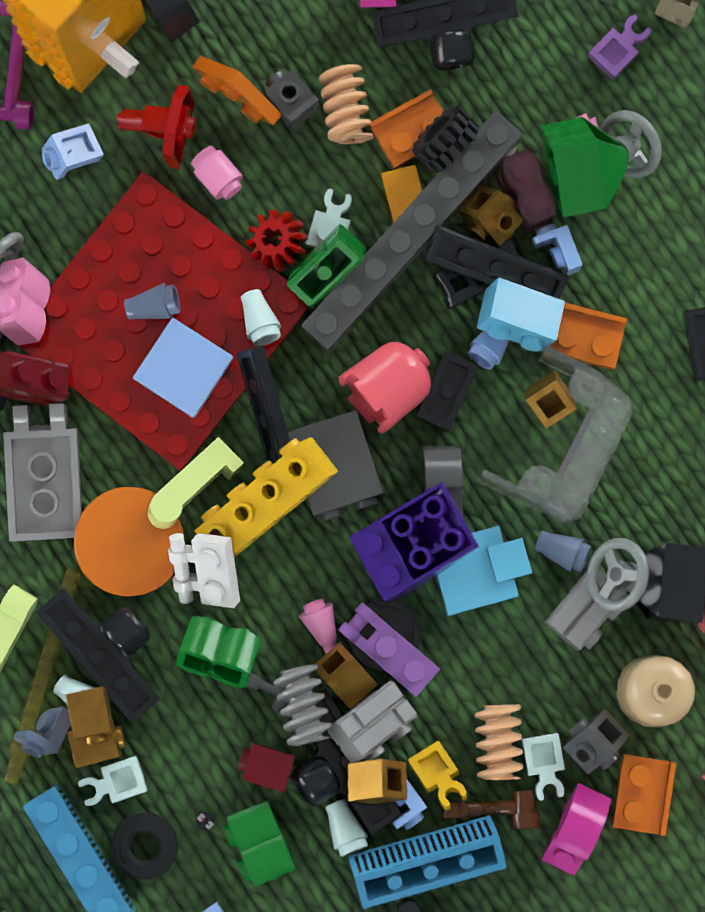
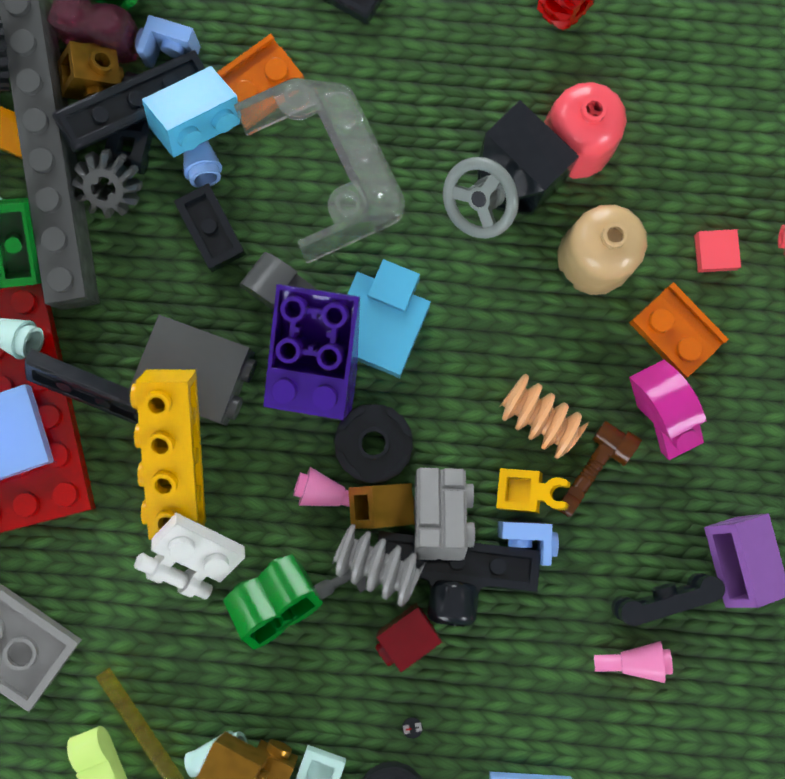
camera: 45 degrees left, 0 degrees up
(103, 650) = (188, 704): black plate -> none
(120, 545) = (109, 609): orange tile -> none
(192, 480) = (106, 508): yellowish green leg -> none
(260, 844) = (469, 697): green brick -> none
(345, 829) = (514, 609): light aqua cone -> none
(377, 781) = (497, 551): brick -> none
(388, 384) = (159, 270): coral cylinder -> none
(390, 650) = (390, 449): medium lavender plate -> none
(406, 294) = (96, 193): none -> dark grey gear
(427, 861) = (599, 562): dark azure brick -> none
(544, 757) = (585, 390): light aqua plate -> none
(550, 399) = (285, 143): pearl gold brick -> none
(564, 550) = (422, 235): sand blue cone -> none
(579, 616) = (487, 262): light grey brick -> none
(595, 741) = (606, 333): dark grey brick -> none

